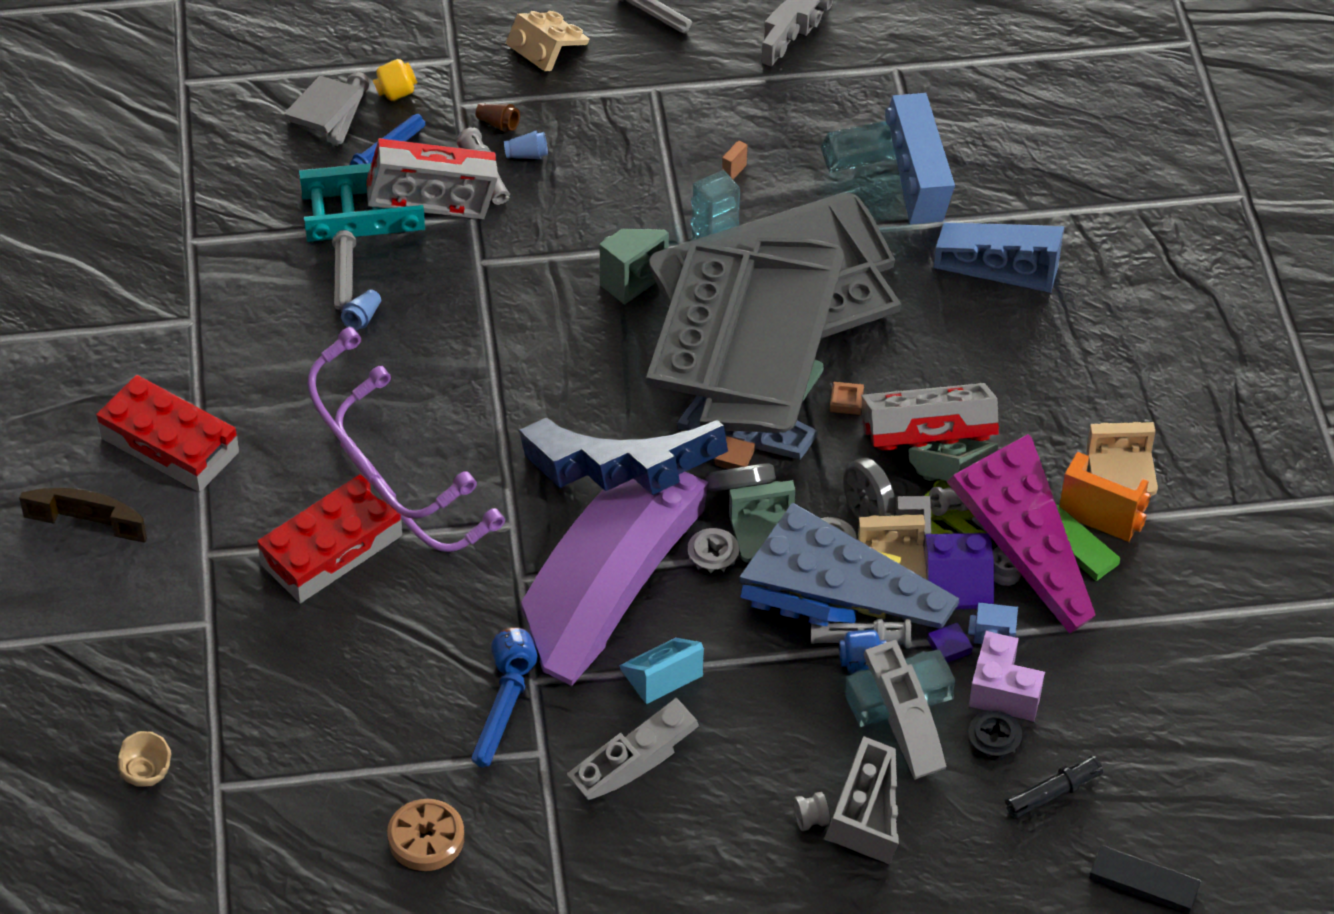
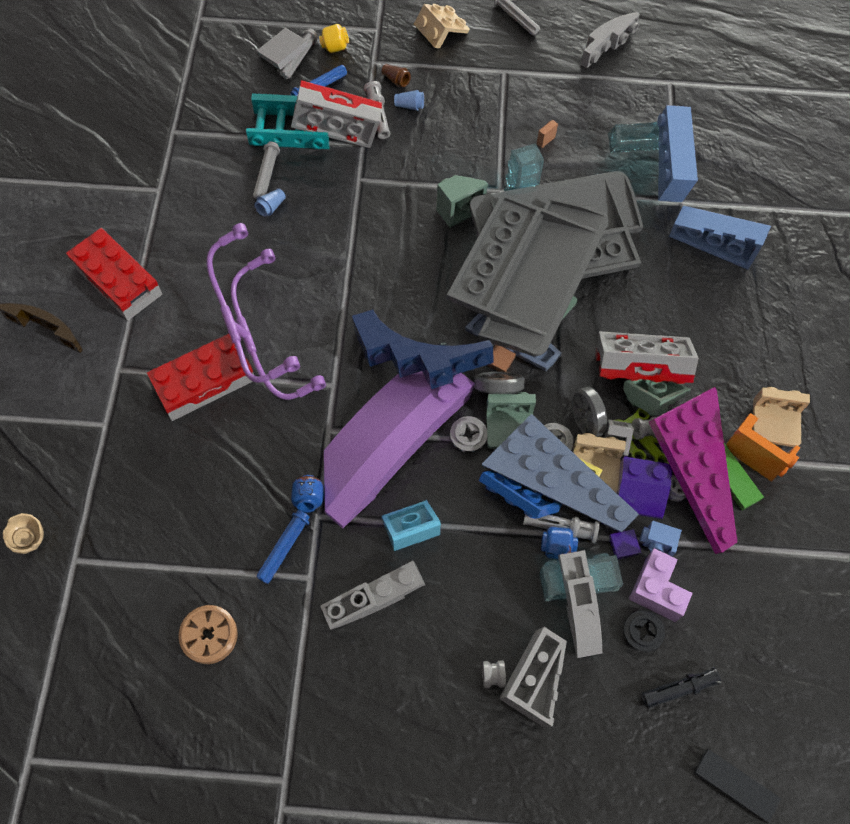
camera: 10 degrees right, 15 degrees up
(846, 398) = (588, 328): nougat tile -> none

